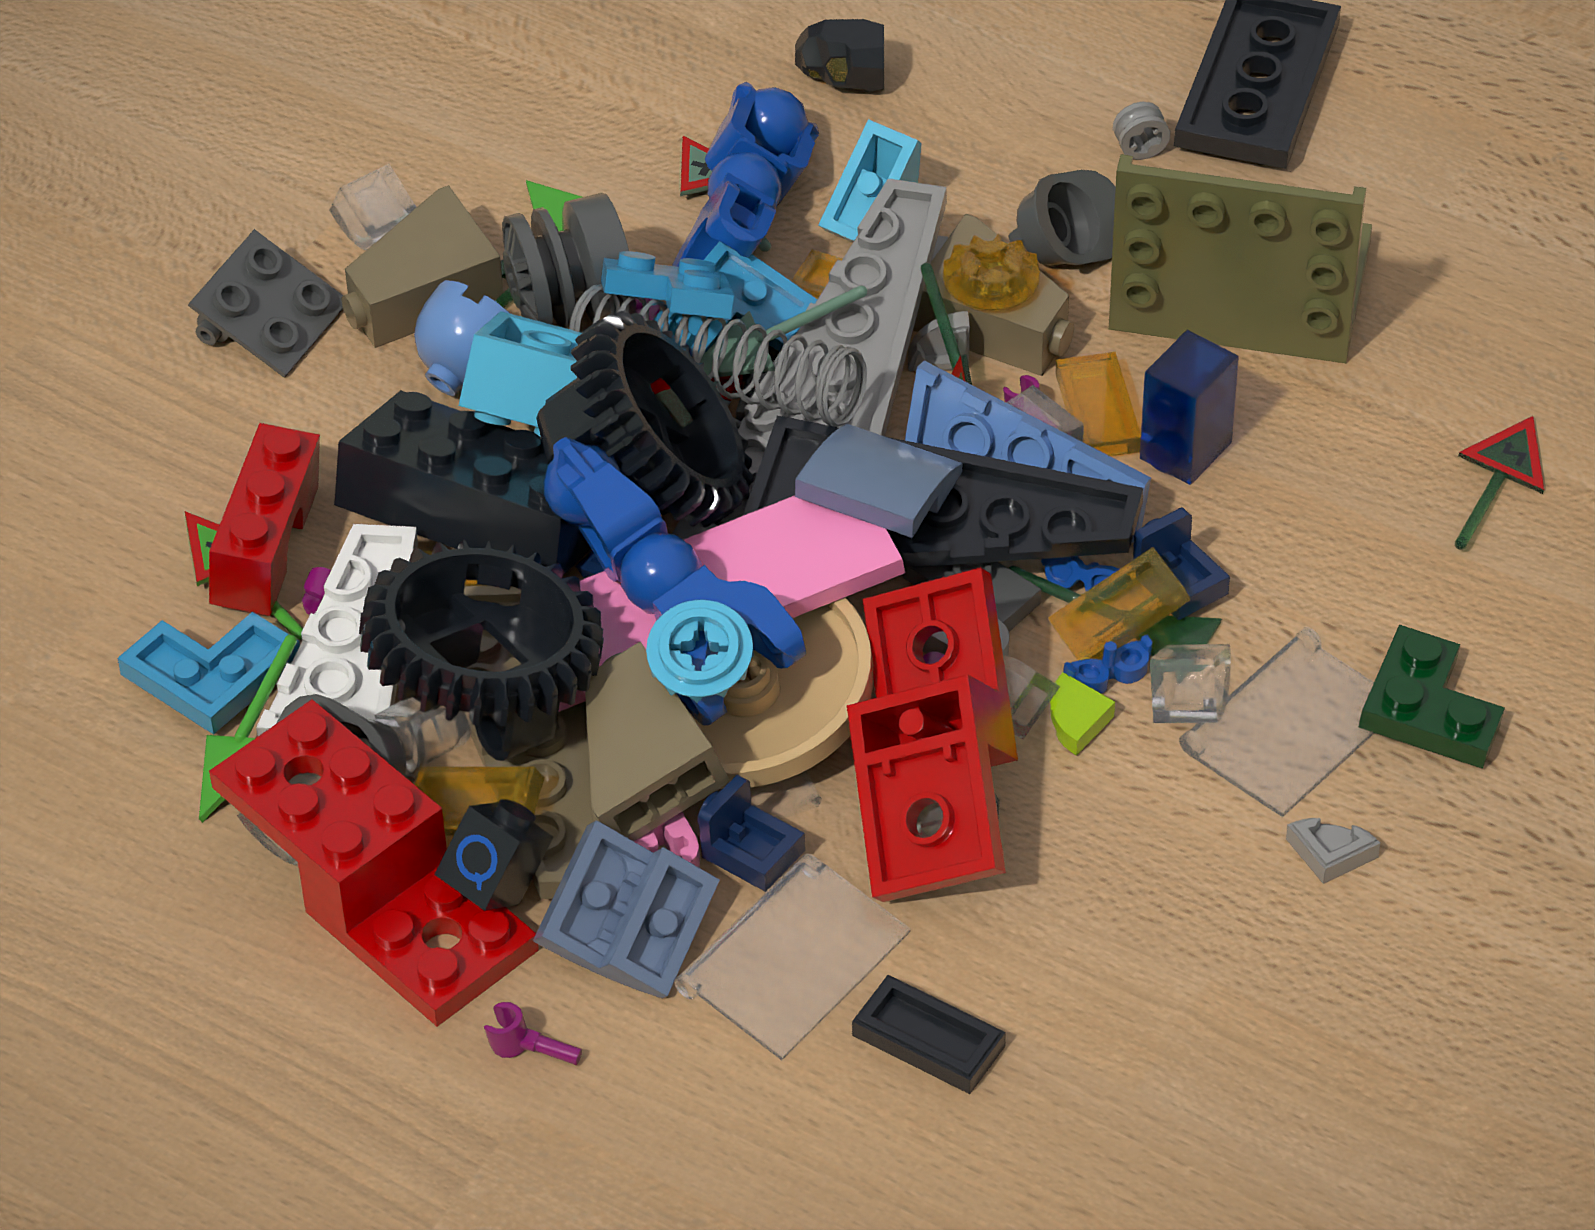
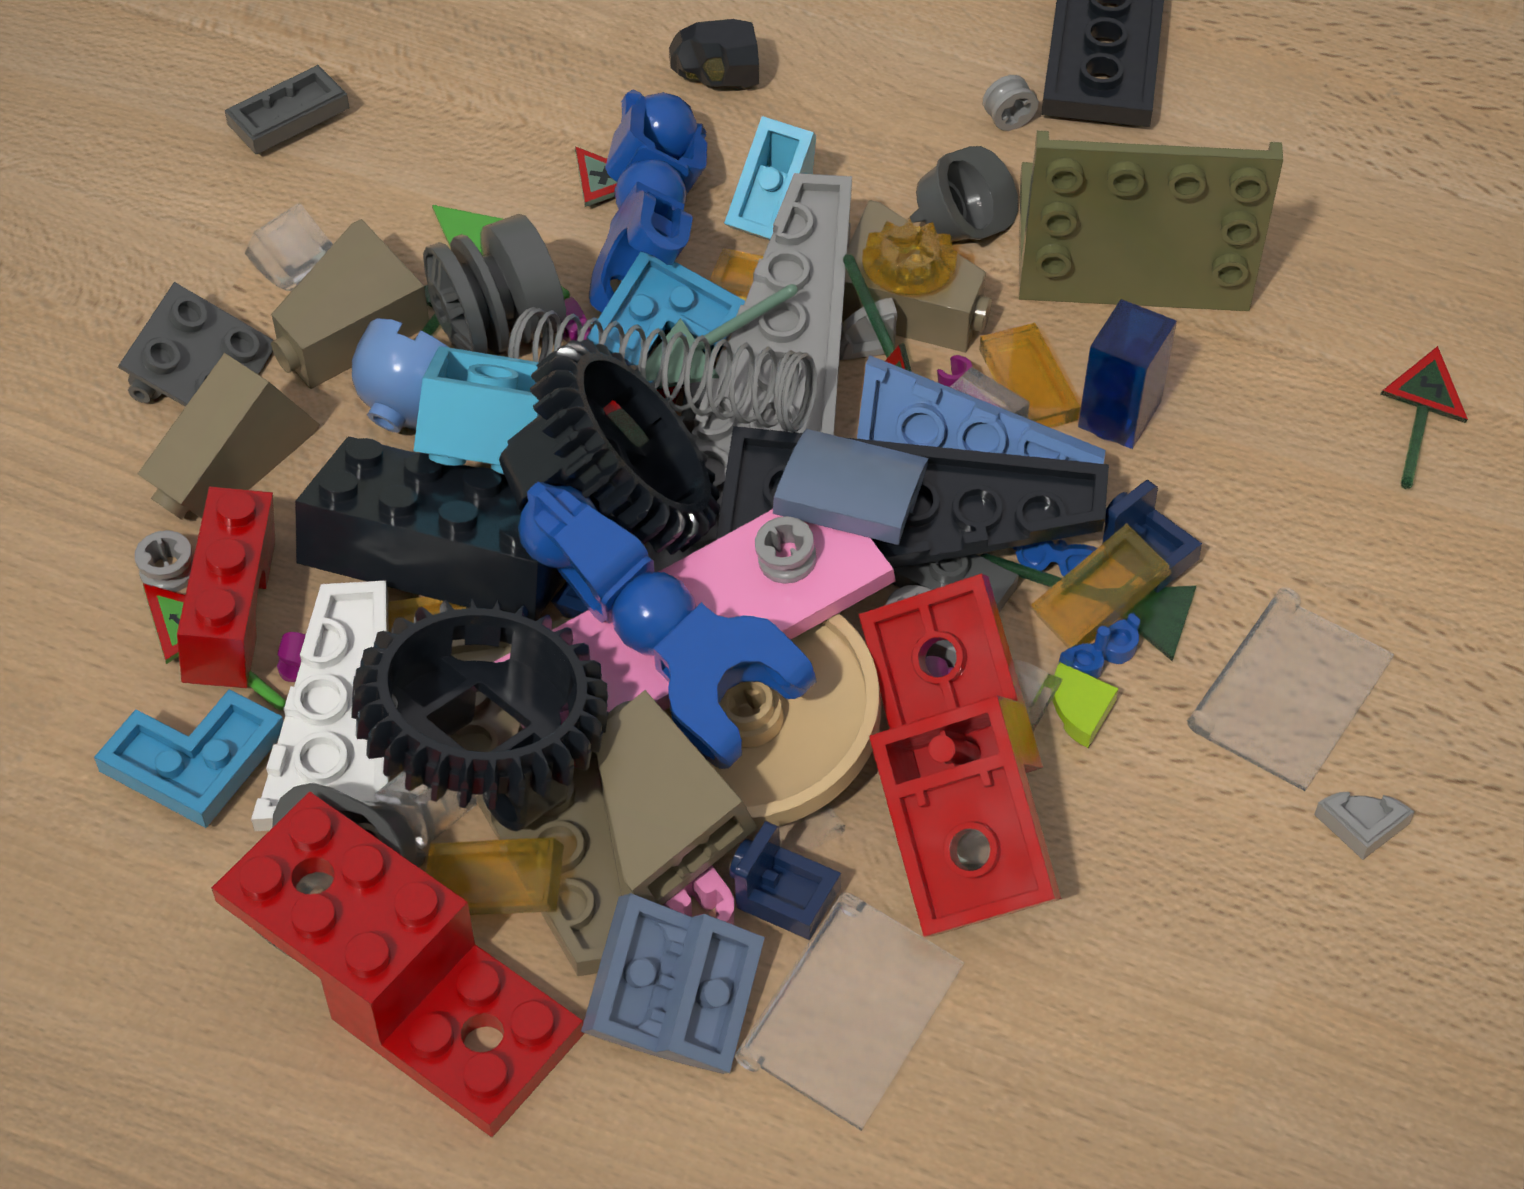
camera: 10 degrees left, 5 degrees up
(204, 479) = (160, 546): none -> light grey bush
(221, 747) = (224, 848): bright green piece -> none
(285, 378) = (225, 438): none -> dark tan slope
(393, 71) = (287, 109): none -> dark grey plate
(494, 854) = (527, 941): black brick -> none
(517, 1038) = (586, 1142): magenta hand -> none
(678, 632) = (736, 676): medium azure gear -> none
(687, 289) = (623, 303): dark azure plate -> none
(808, 545) = (781, 531): none -> light grey bush
(928, 1034) = (1009, 1083): black tile -> none
(1190, 683) = (1189, 661): clear brick -> none
(1416, 707) = (1410, 663): dark green plate -> none

